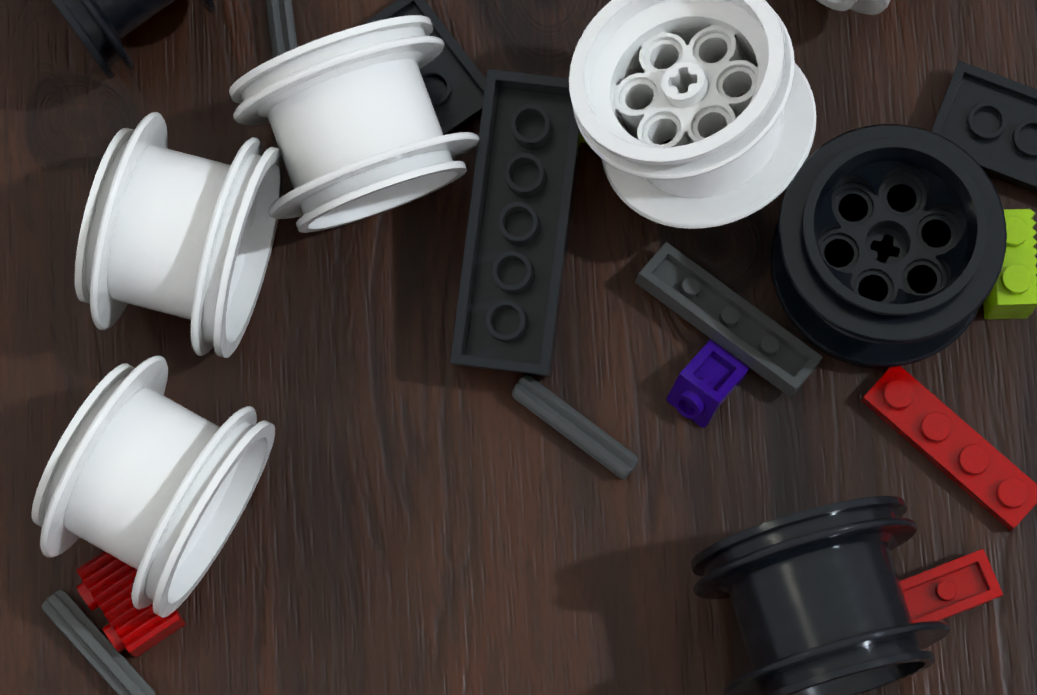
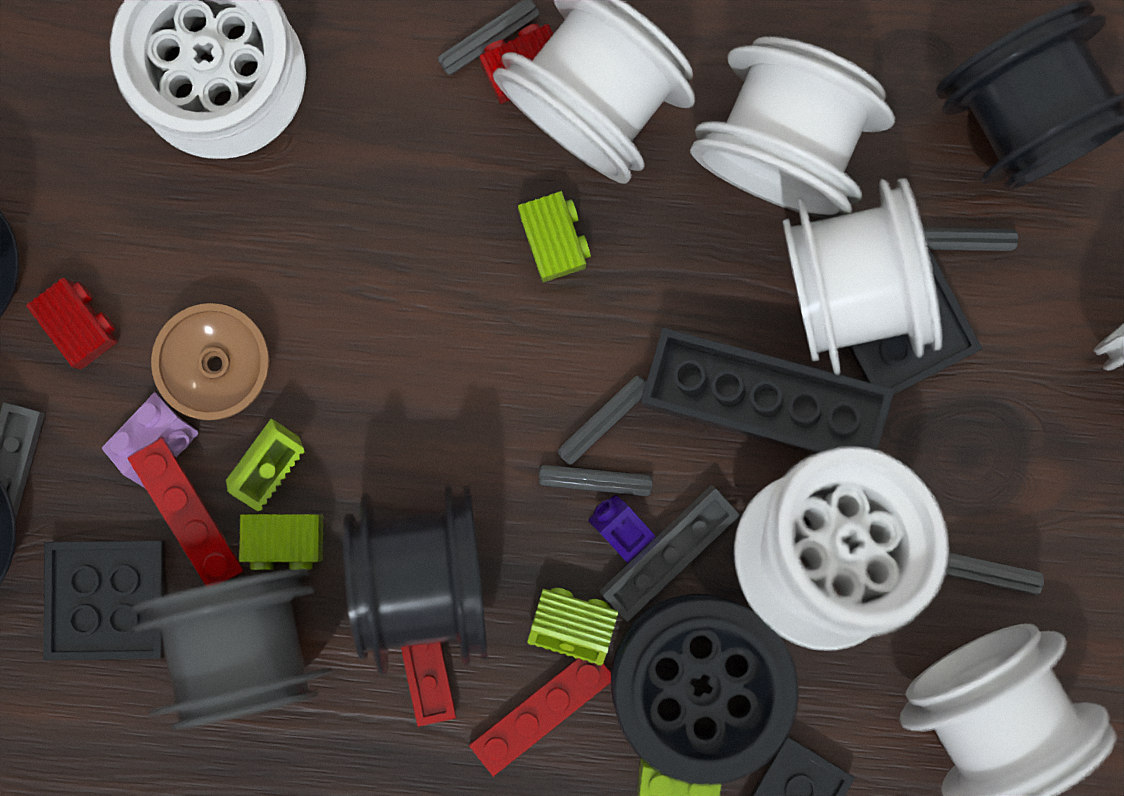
camera: 90 degrees right, 10 degrees up
(351, 523) = (553, 236): none -> lime brick
(652, 425) = (595, 480): none -> dark grey axle
(840, 420) = (573, 625): none -> lime brick

